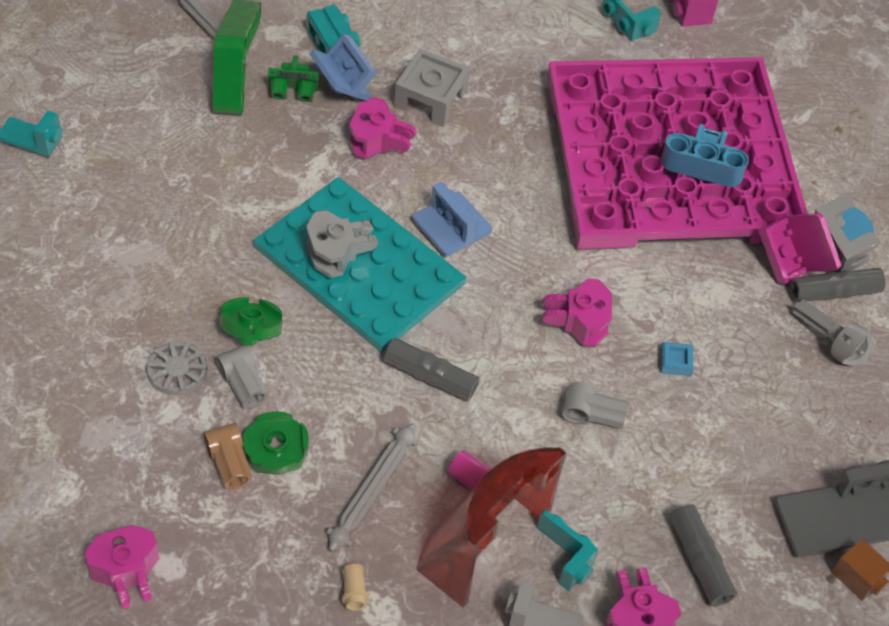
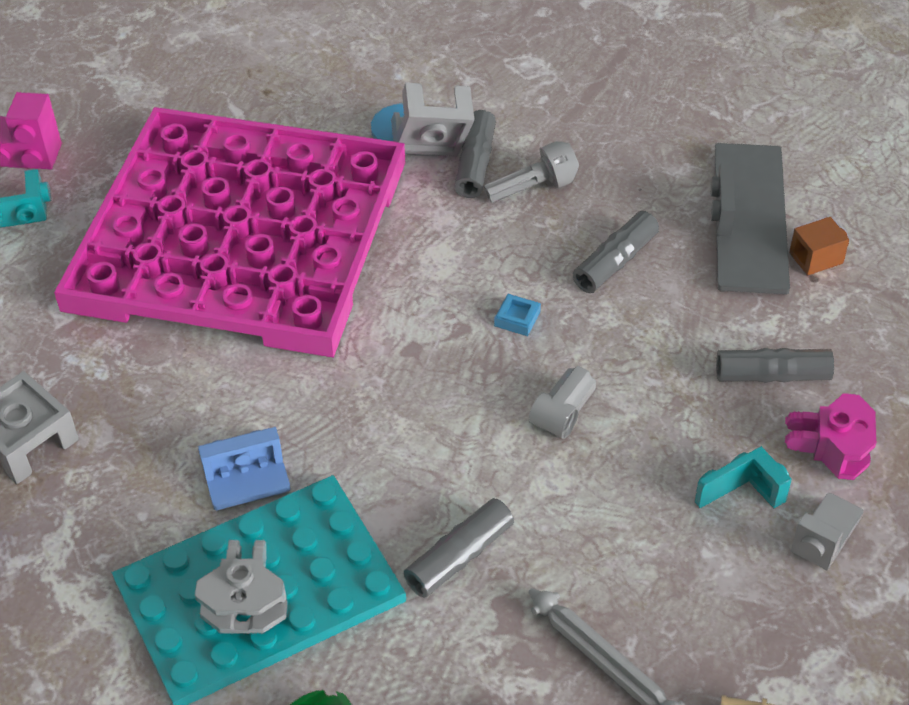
camera: 65 degrees left, 5 degrees down
(378, 130) = (62, 504): dark pink hinge -> none
(467, 469) = (615, 547): dark pink piece -> none
(471, 524) = (717, 535): clear red windscreen -> none
(581, 312) = (434, 372): dark pink hinge -> none
(705, 157) = (279, 191): dark azure piece -> none
(777, 412) = (615, 251): none -> dark grey axle
(799, 246) = (428, 153): dark pink bracket -> none

